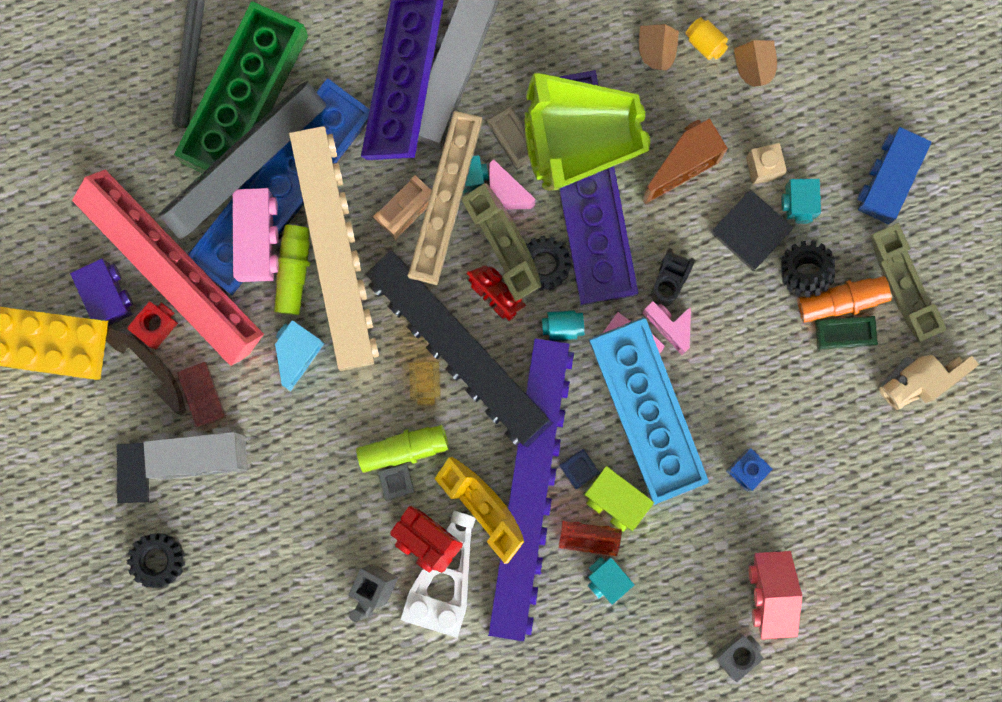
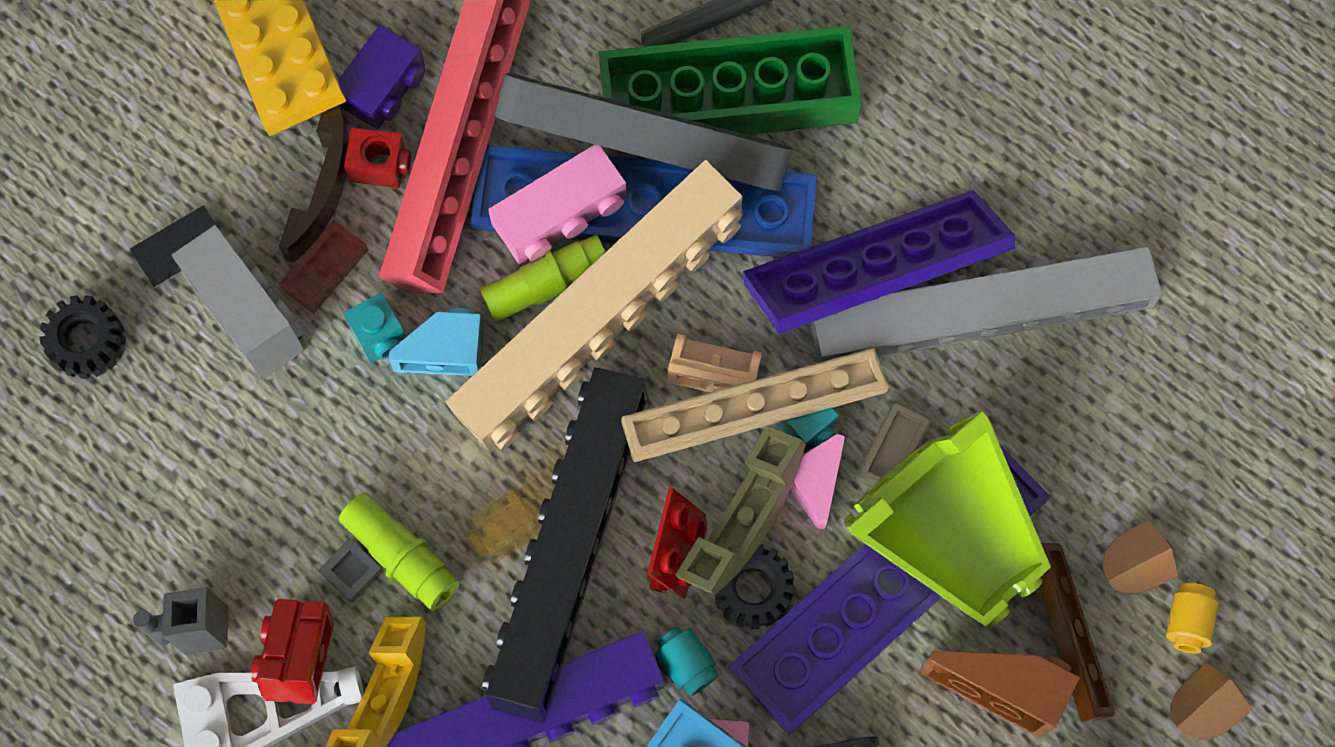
camera: 55 degrees right, 10 degrees down
(261, 385) = (375, 327): none -> teal brick
(679, 108) = (1074, 637): none -> reddish brown tile

